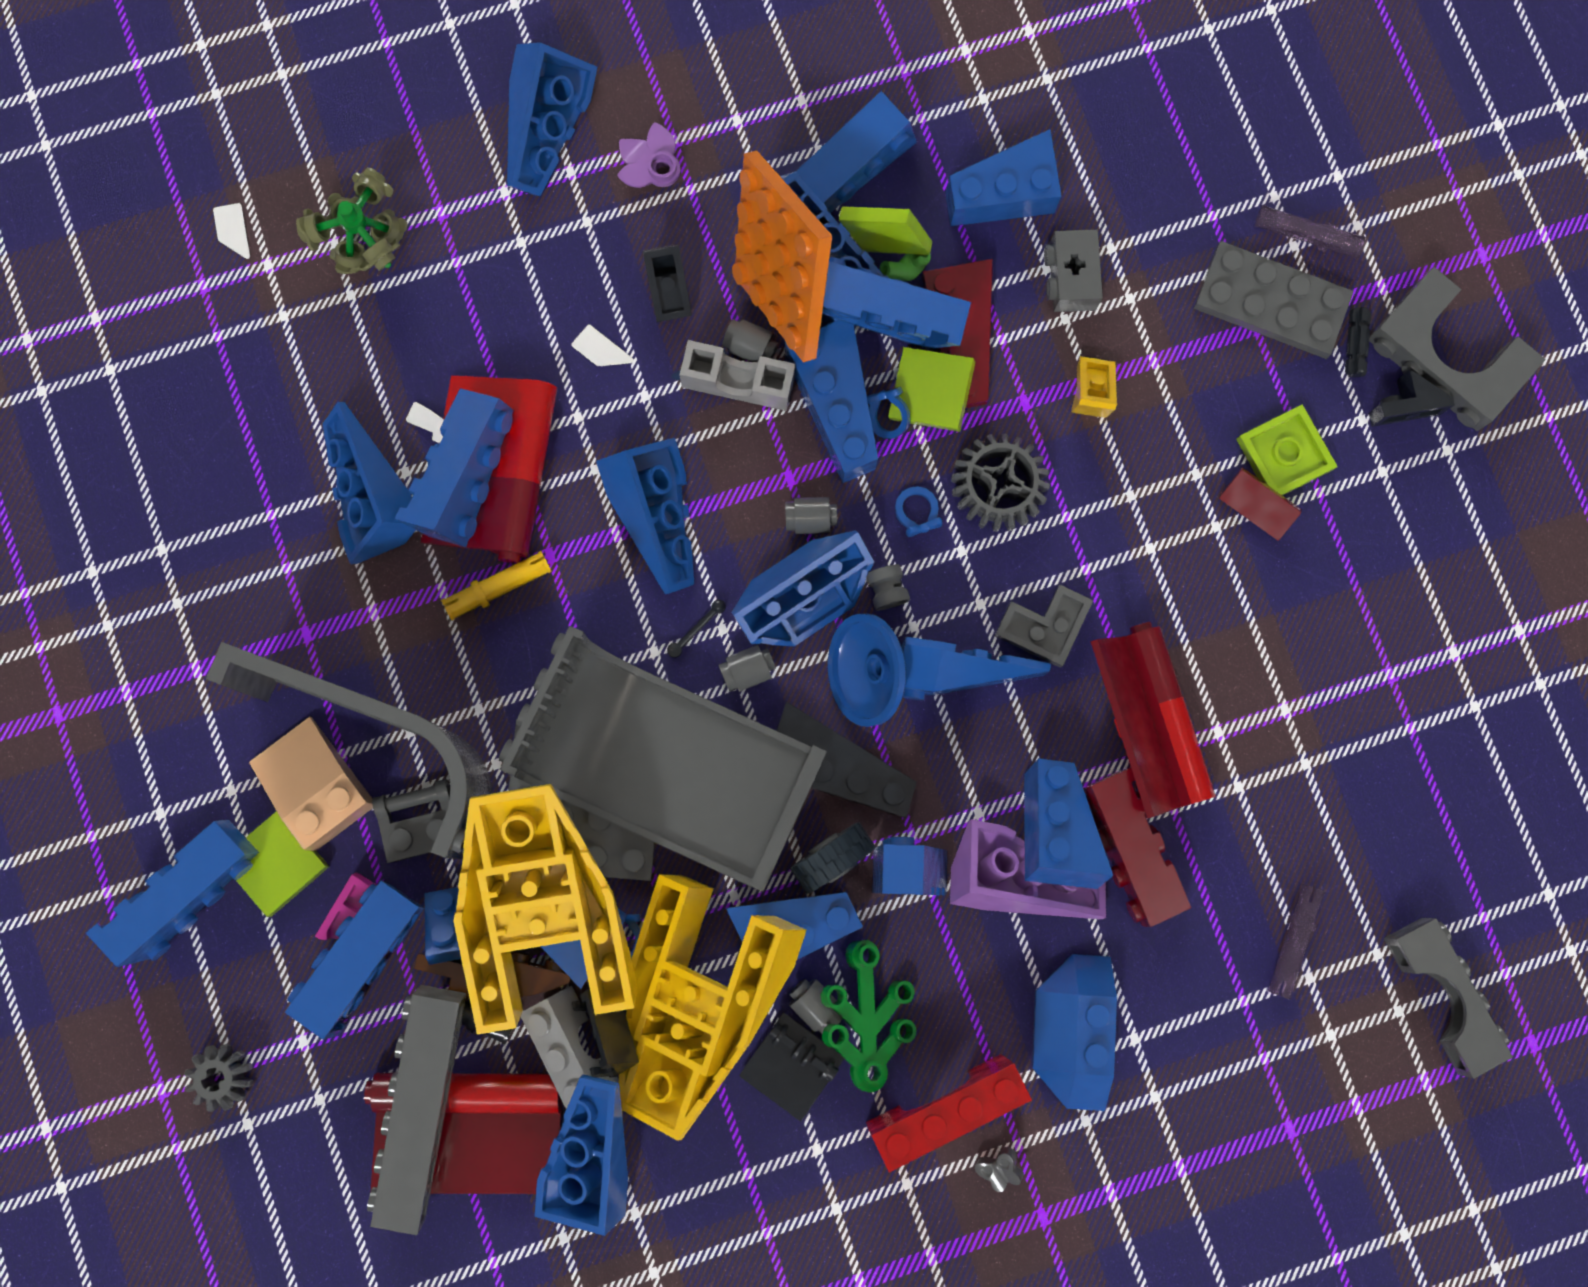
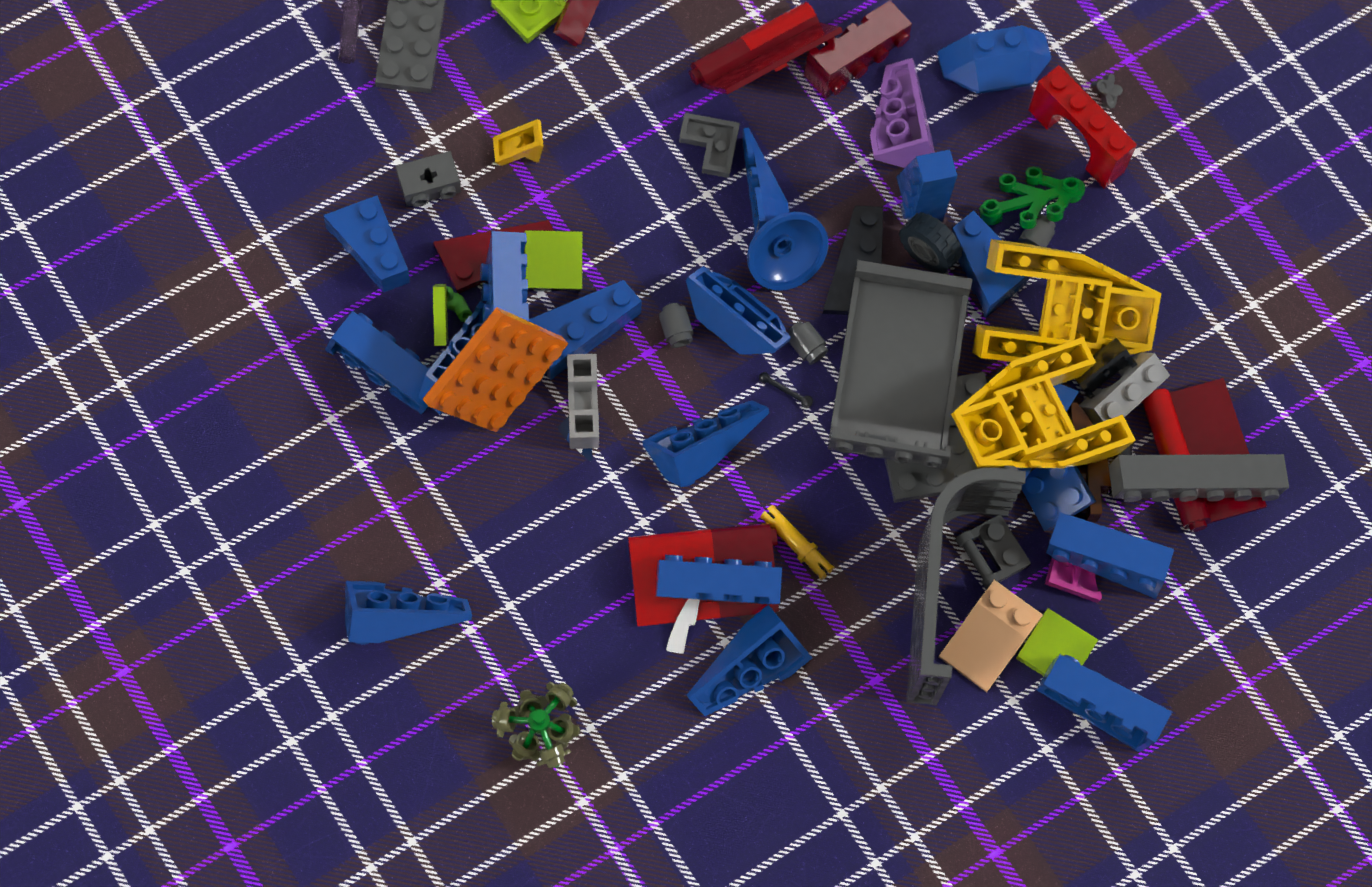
camera: 105 degrees left, 10 degrees down
(226, 1091) = (1219, 627): dark grey gear -> none
(231, 228) = (559, 841): white sticker -> none
(587, 1164) = (1199, 355): blue wedge -> none
(599, 348) = (582, 520): white sticker -> none
(646, 157) = (412, 524): medium lavender plate -> none
(667, 282) = (522, 473): black slope -> none
(749, 341) = (550, 402): dark grey brick -> none
(792, 1067) = (1085, 236): black hinge -> none
(887, 587) = (716, 257): dark grey wheel -> none
(893, 395) = (566, 284): blue piece -> none
(912, 528) = (653, 240): blue piece -> none
(1012, 487) = (601, 195): dark grey gear -> none
(1060, 829) = (860, 96): blue wedge -> none

